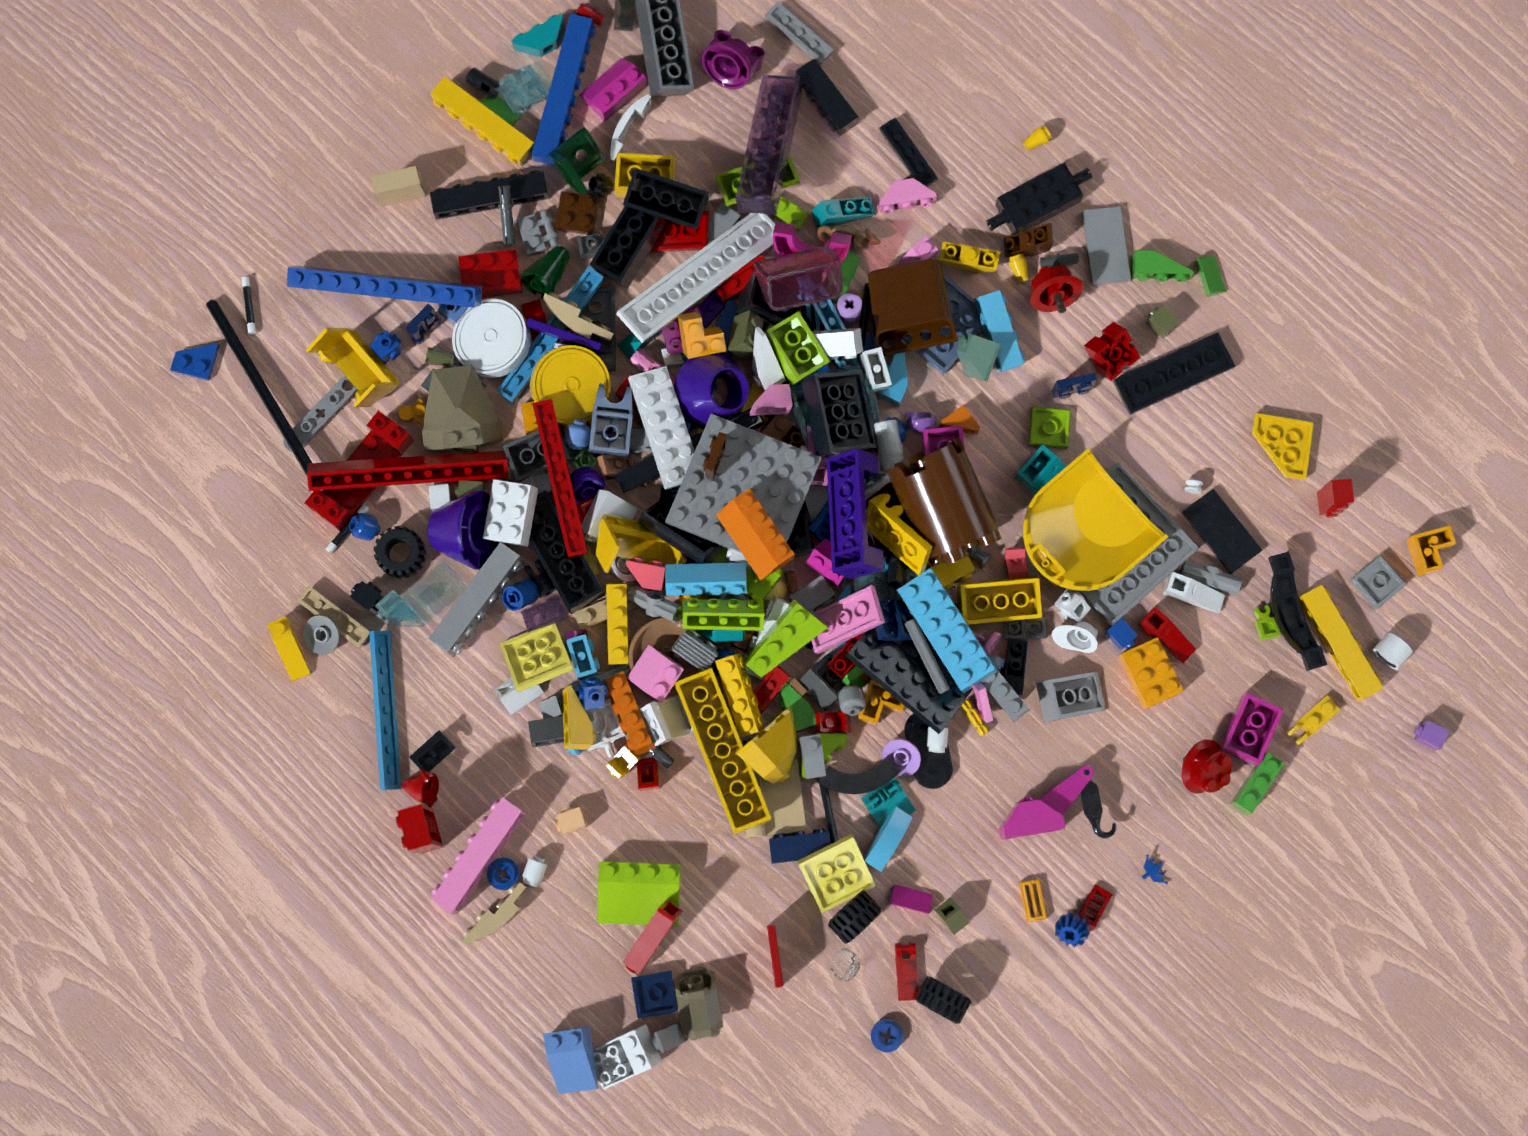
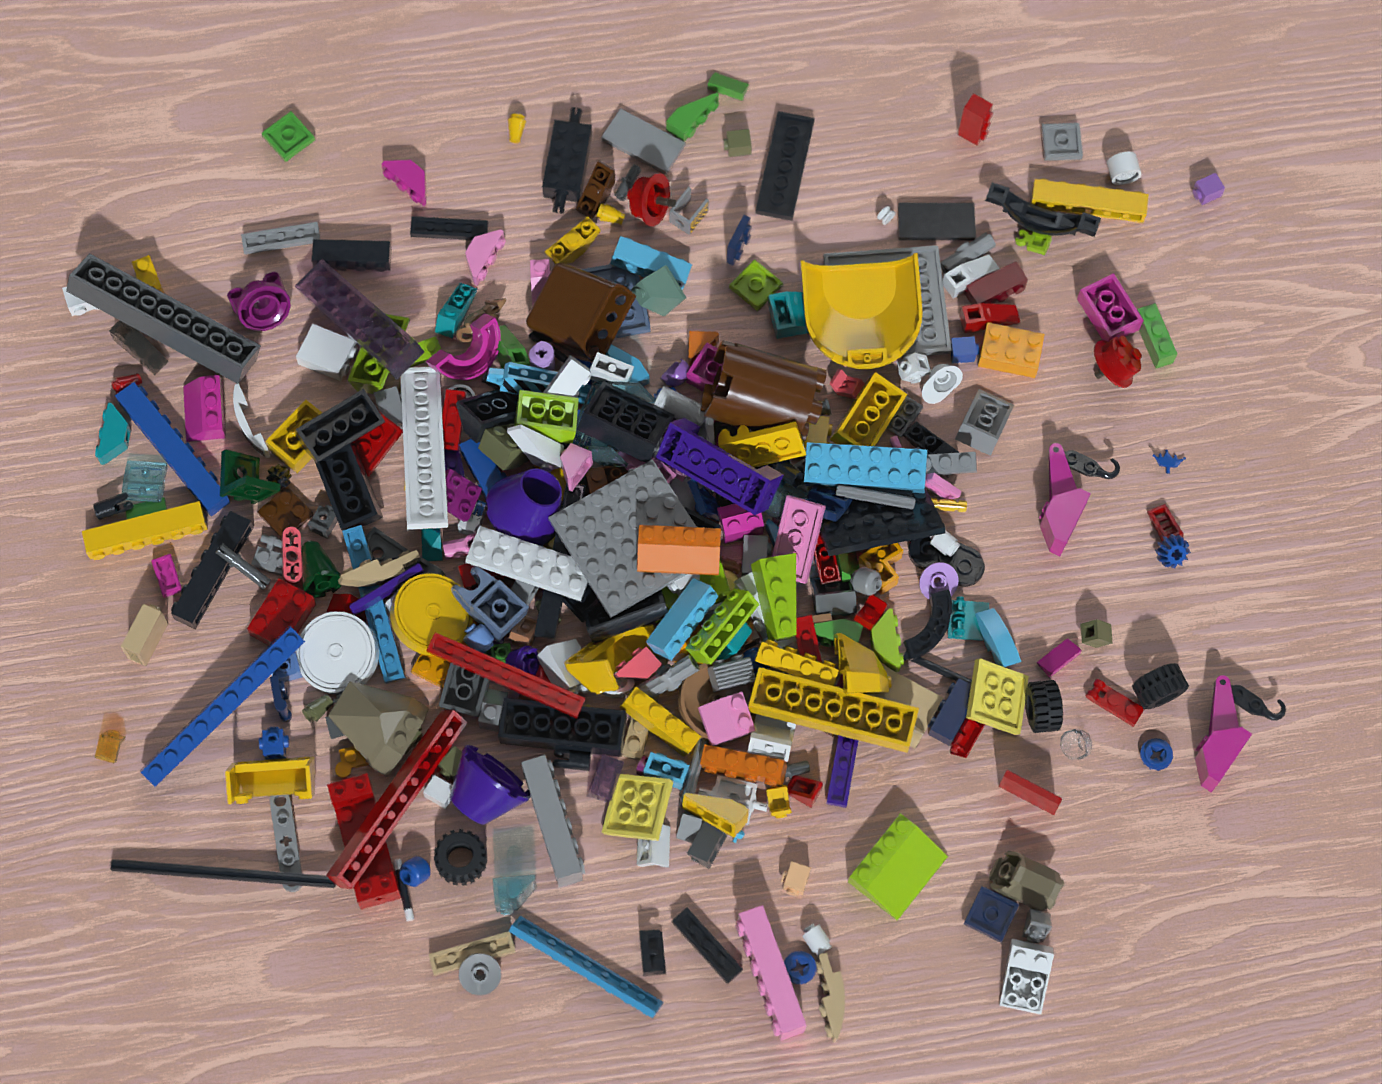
camera: 55 degrees left, 10 degrees down
(196, 361) = (153, 915): blue wing -> none
(248, 305) = (141, 835): black bar -> none
(289, 648) = (469, 1010): yellow slope -> none
(297, 228) = (109, 746): none -> clear yellow bracket
(367, 596) = (479, 909): black brick -> none
(419, 829) = (715, 1000): red brick -> none
(422, 787) = (676, 982): red hat -> none
(460, 165) = (166, 575): none -> dark pink plate
(468, 790) = (707, 945): none -> black plate
(510, 513) = (503, 736): white brick -> none
(520, 595) = (575, 783): blue wheel -> none
(550, 231) = (297, 570): none -> coral beam
(571, 1059) = (999, 1019): medium blue slope -> none
(592, 693) = (704, 781): blue brick -> none
(652, 937) = (944, 879): slope -> none
(683, 794) = (842, 772): none -> dark purple plate
(699, 341) = (475, 486): light orange brick -> none
(712, 462) = (587, 529): reddish brown plate -> none
(728, 140) = (327, 352): none -> white brick
(780, 874) = (964, 741): none -> red hinge
(800, 278) = (492, 370): clear pink windscreen -> none
(812, 756) = (888, 644): light grey slope -> none
(926, 90) = (408, 178): none -> dark pink slope
(937, 1084) = (1225, 736): none -> dark pink slope
(1032, 898) = (1124, 573): light orange tile -> none
(1069, 337) = (689, 225): none -> light grey piece
(1112, 351) = (733, 193): red brick -> none
(1199, 621) = (997, 285): none -> dark red brick
(1285, 442) = (902, 127): yellow plate -> none
(1315, 718) = (1134, 261): yellow hinge -> none
(1425, 549) = (1062, 89): light orange brick -> none

